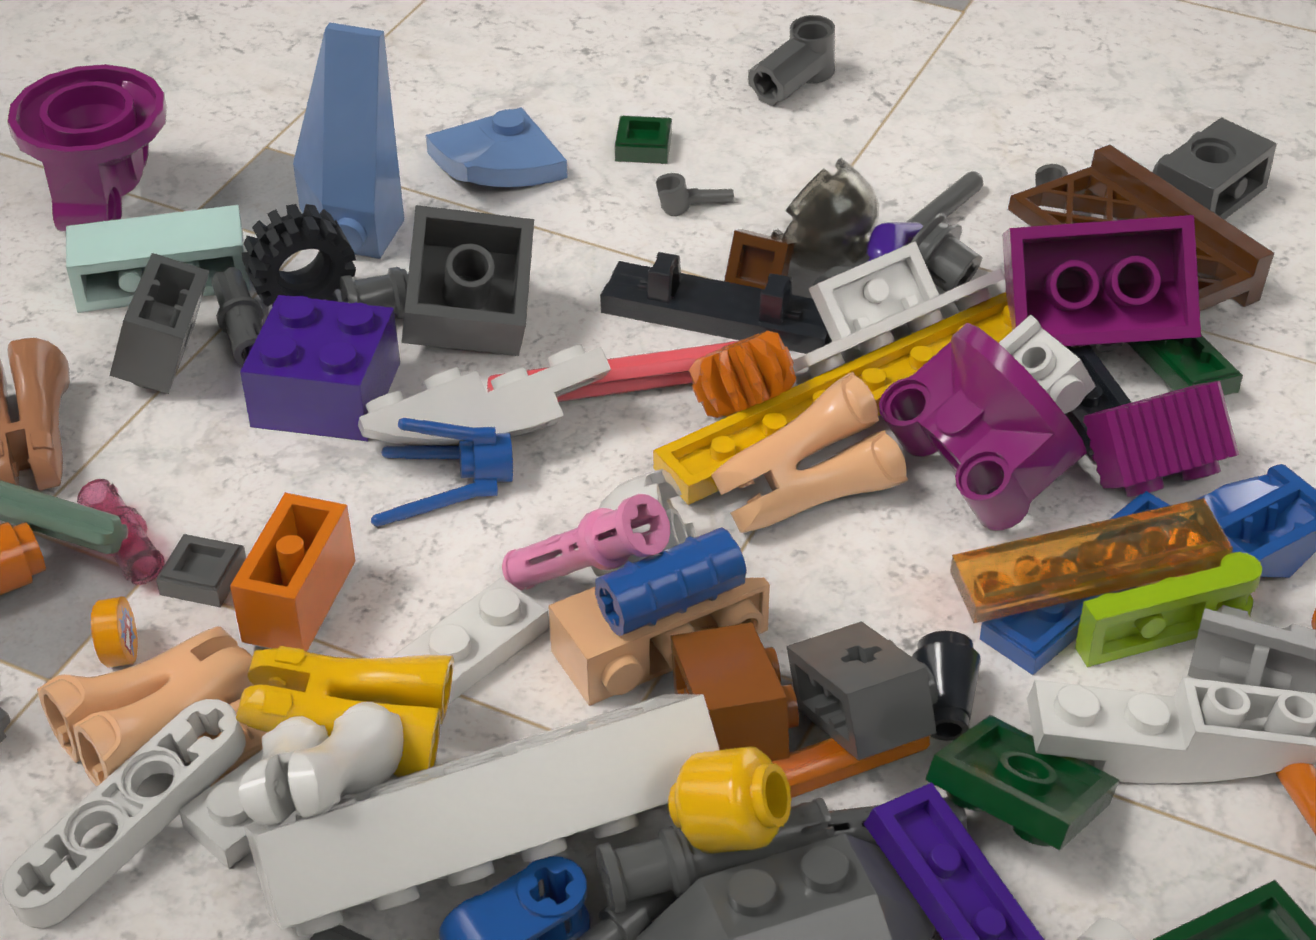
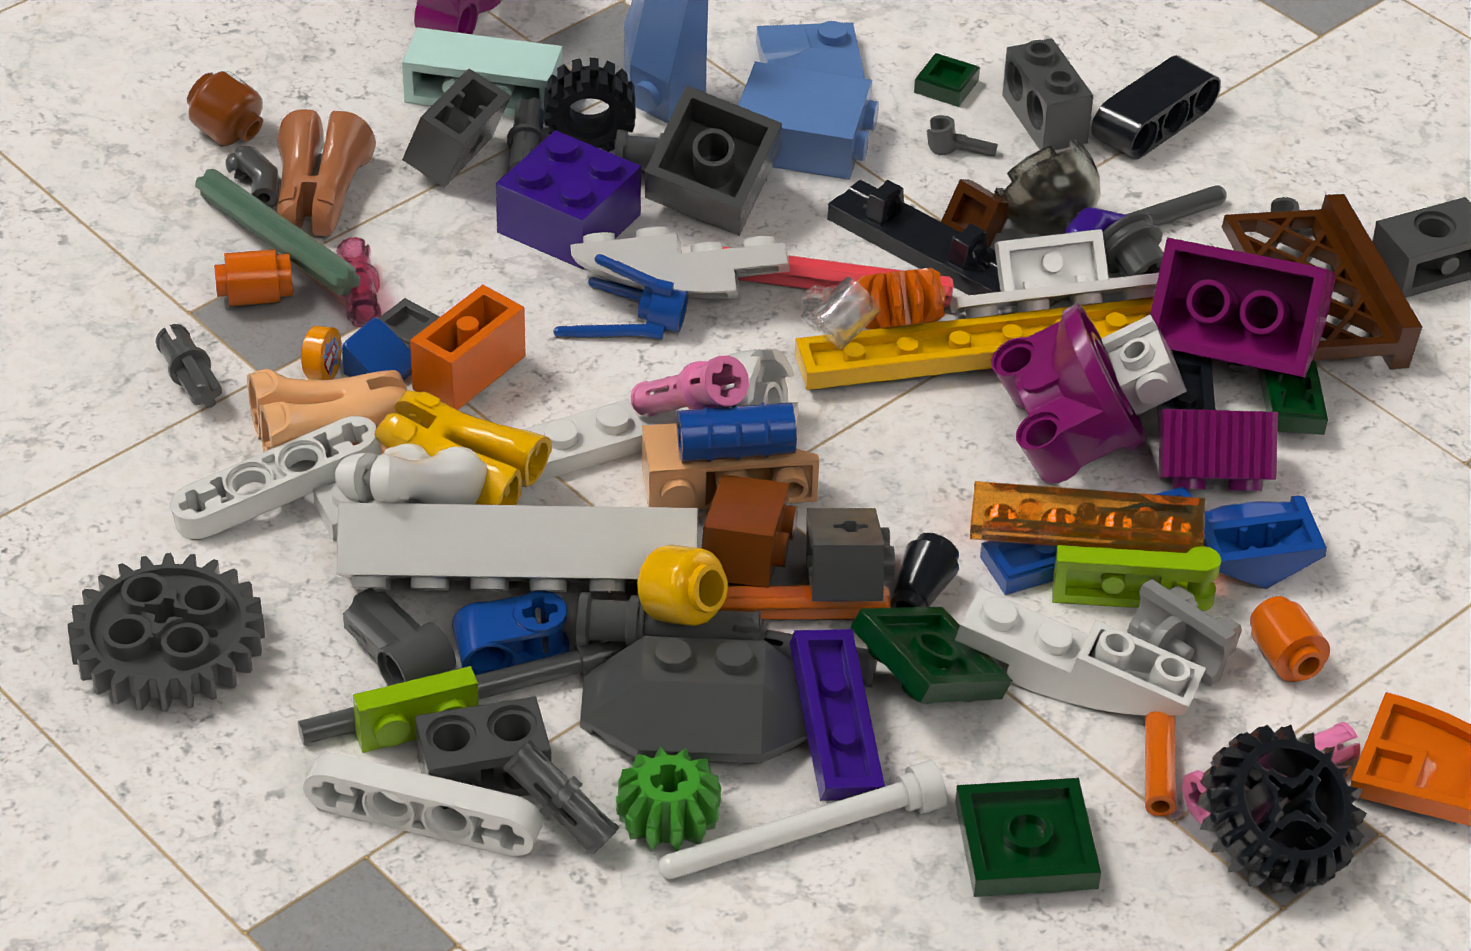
camera: 20 degrees right, 0 degrees up
(181, 610) = (375, 350): none -> blue slope
(554, 194) = (819, 113): none -> medium blue brick
(690, 407) = (839, 310): none -> clear piece
(759, 127) = (1047, 94): none -> dark grey brick
(800, 60) = (1133, 42): dark grey piece -> none
(835, 415) = (947, 352): light nougat piece -> none
(866, 112) = (1155, 107): none -> black beam

